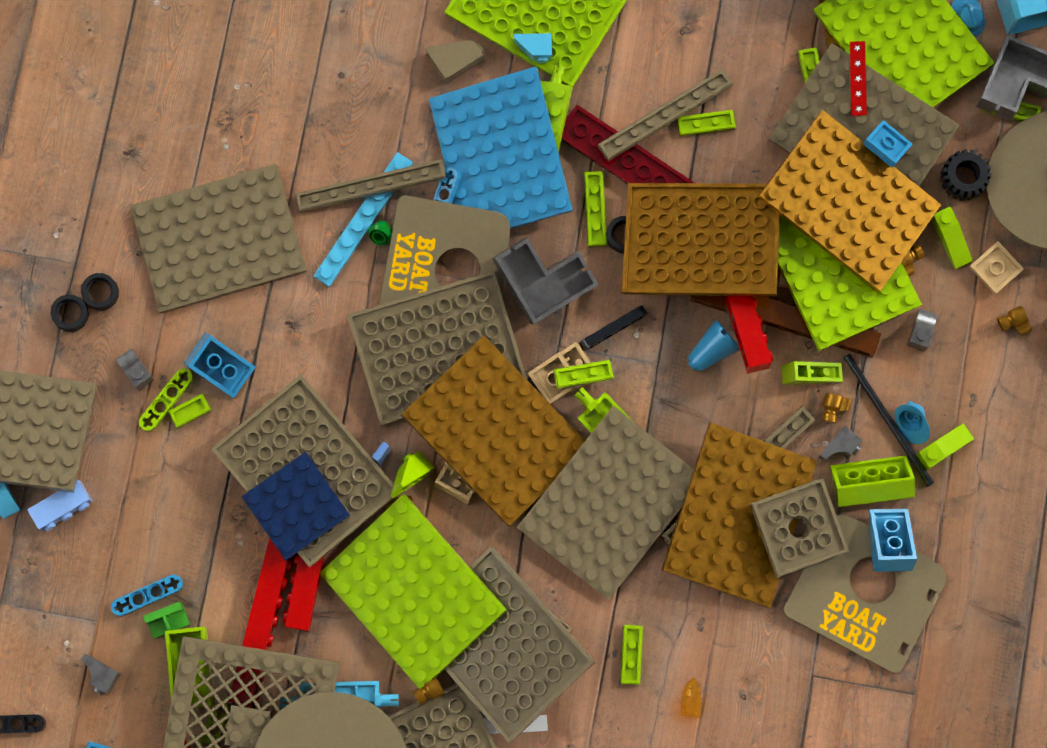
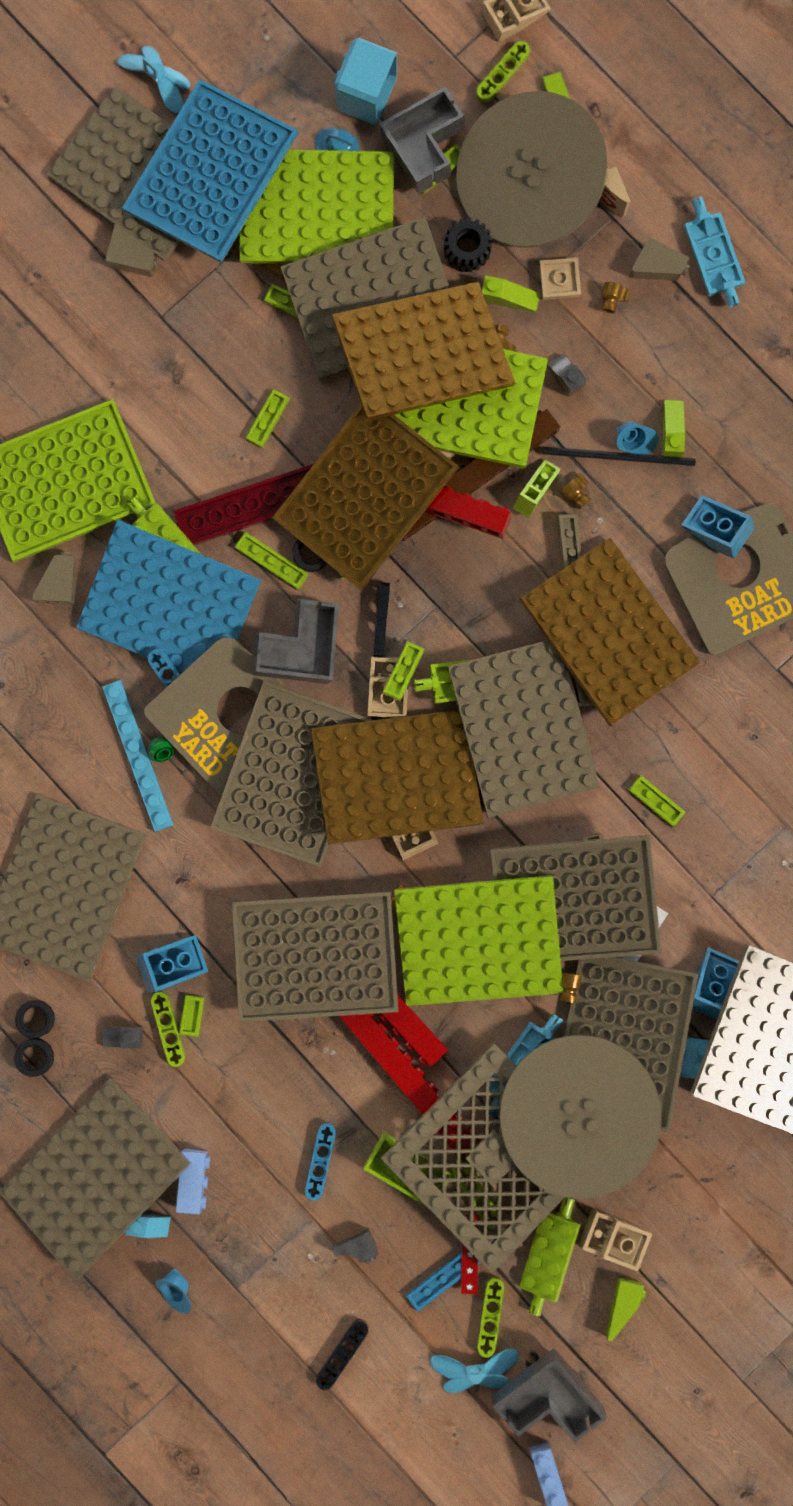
camera: 55 degrees left, 5 degrees up
(167, 618) = (353, 1159): bright green panel -> none
(295, 506) = (339, 986): dark blue plate -> none
(370, 185) = (114, 729): dark tan tile -> none
(381, 453) = (346, 883): medium blue tile -> none
(411, 472) = (379, 871): lime slope -> none
(535, 46) = (99, 507): medium azure slope -> none
(665, 115) = (236, 446): dark tan tile -> none
(691, 700) = (727, 780): clear yellow plate -> none
(712, 348) = (458, 551): dark azure cone -> none
(822, 535) = (673, 575): dark tan piece -> none
(843, 443) = (610, 505): flat silver arch -> none
(858, 78) = (326, 267): red sticker -> none
(872, 481) = (659, 505): lime slope -> none
(887, 143) = (399, 284): dark azure plate -> none

